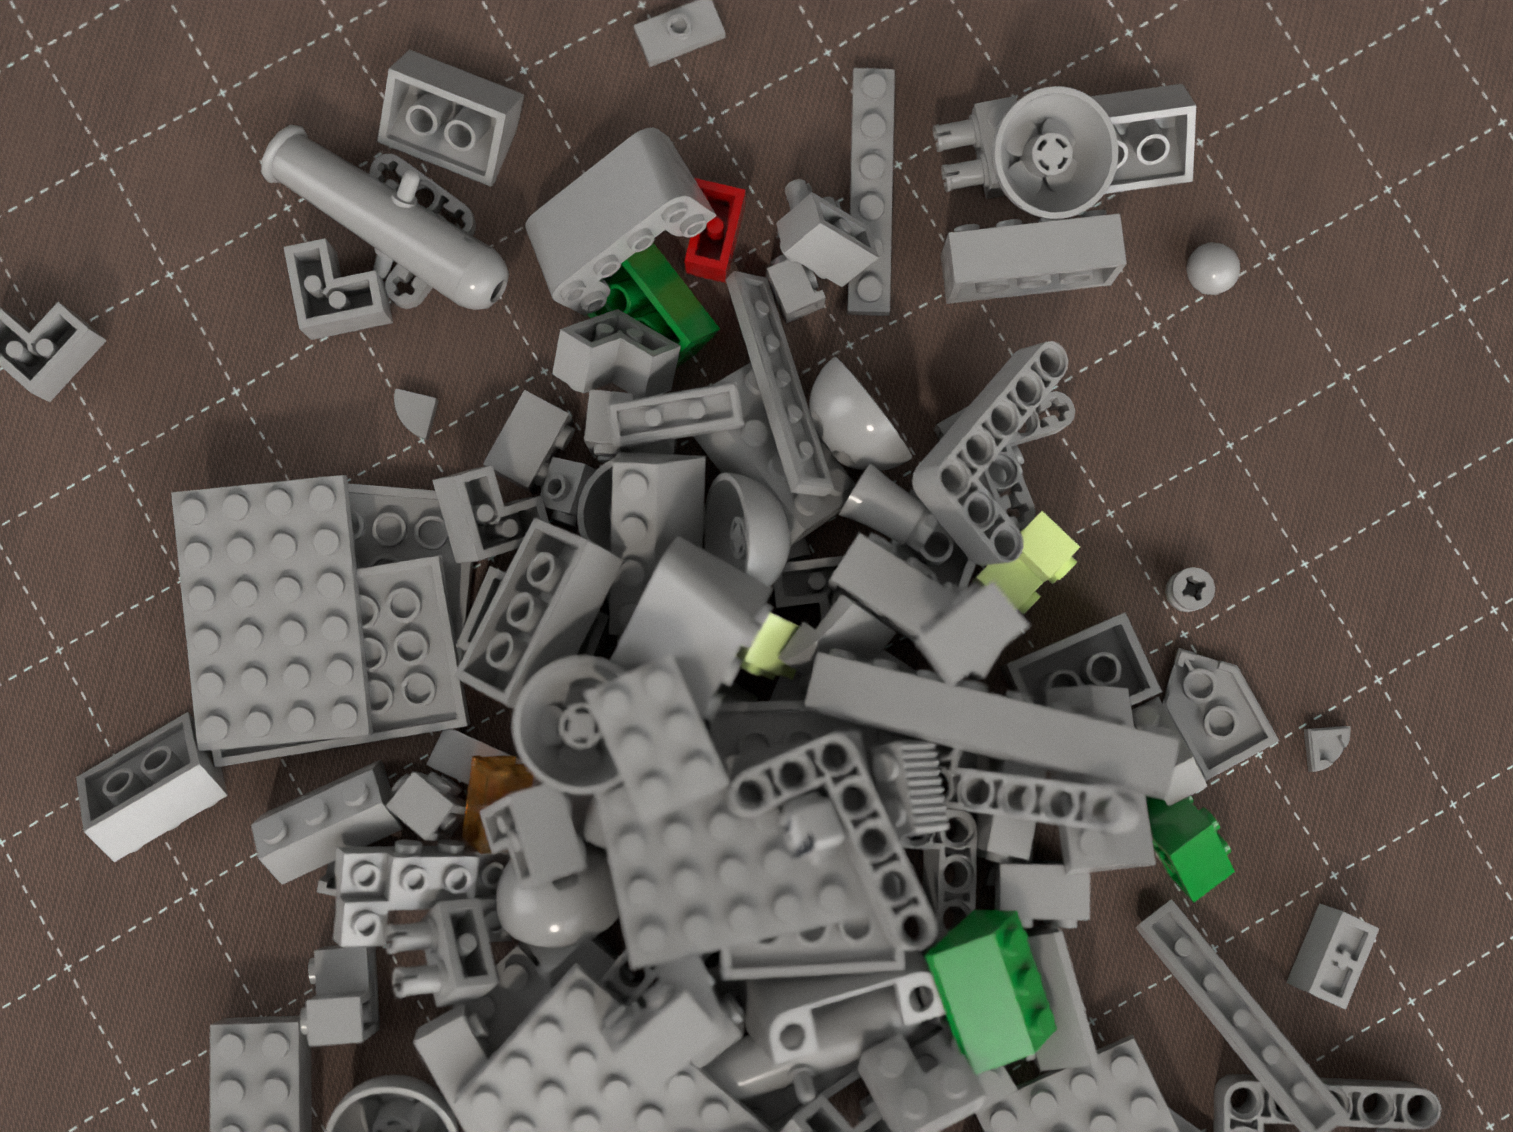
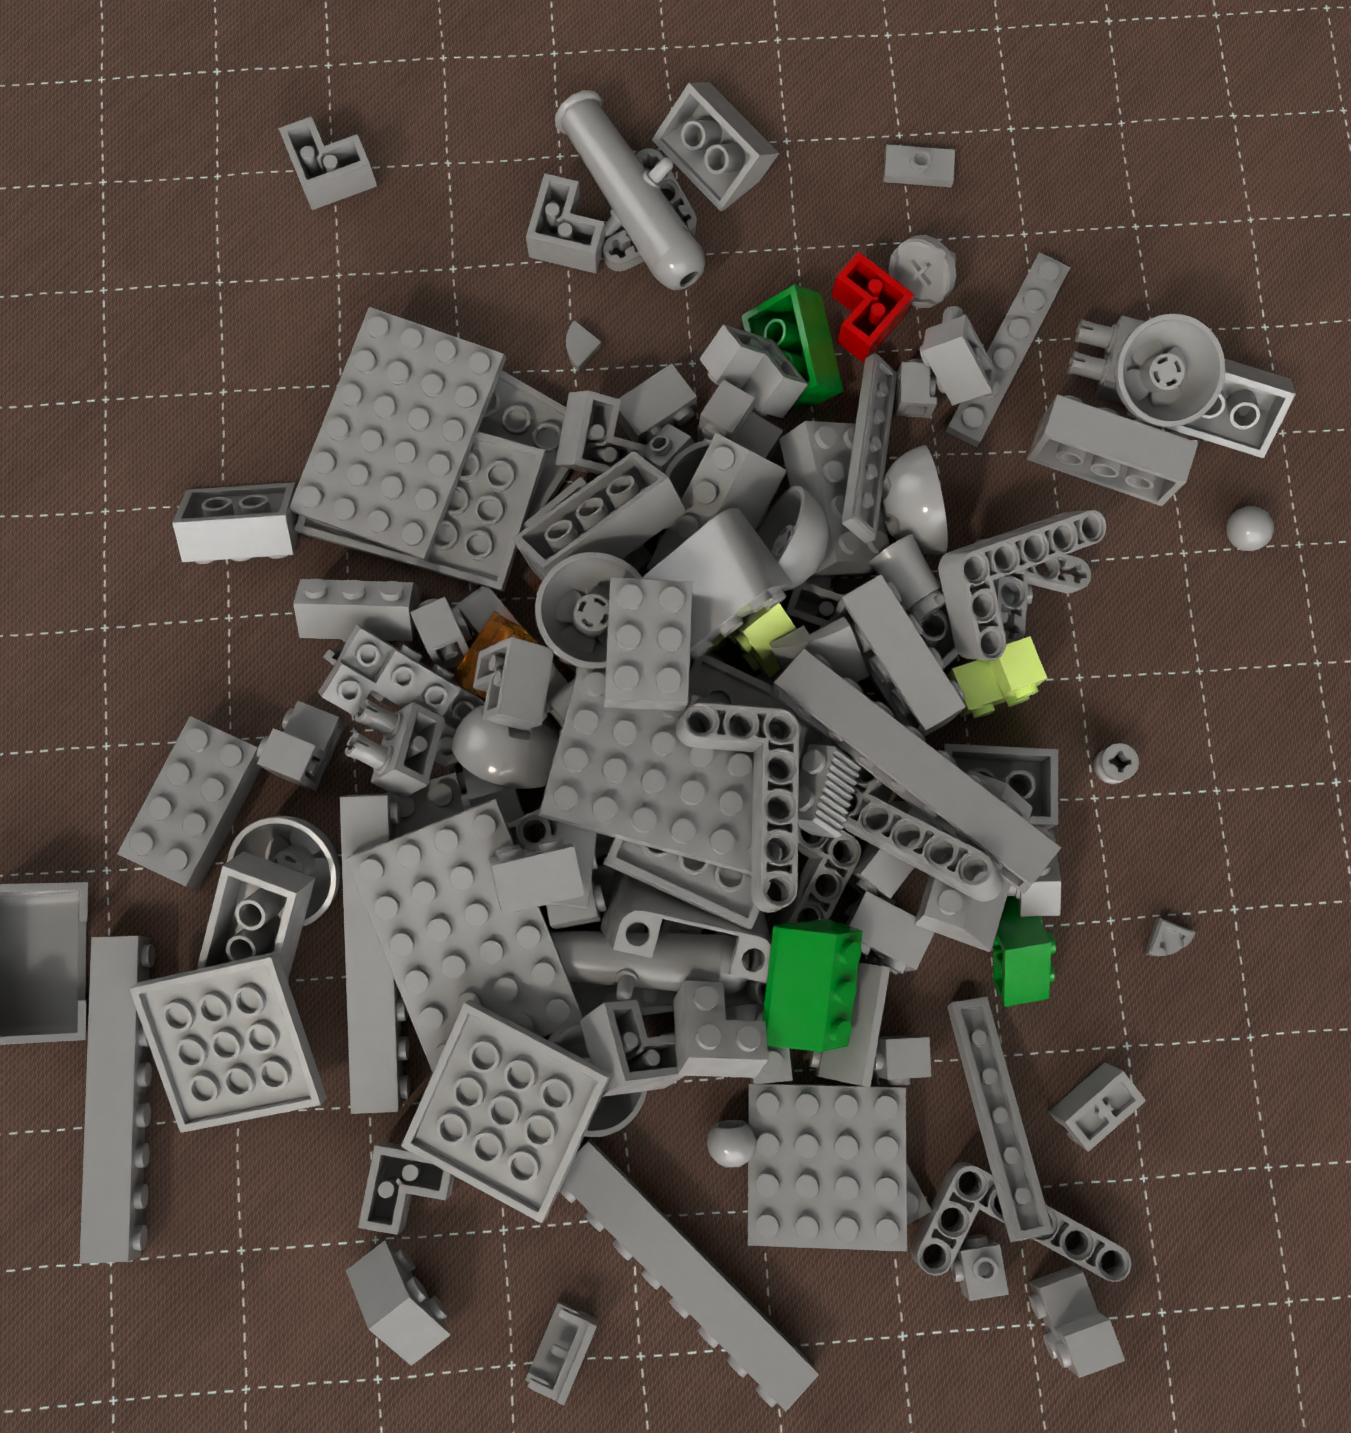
camera: 20 degrees right, 5 degrees down
(612, 215) = (804, 262): light grey windscreen -> none
(675, 415) = (779, 427): light grey tile -> none
(742, 153) = (924, 269): none -> light grey tile
(811, 828) = (734, 775): light grey head -> none
(971, 633) = (935, 680): light grey brick -> none
(1115, 1007) = (902, 1058): none -> light grey brick
(1215, 712) = (1093, 869): light grey tile -> none

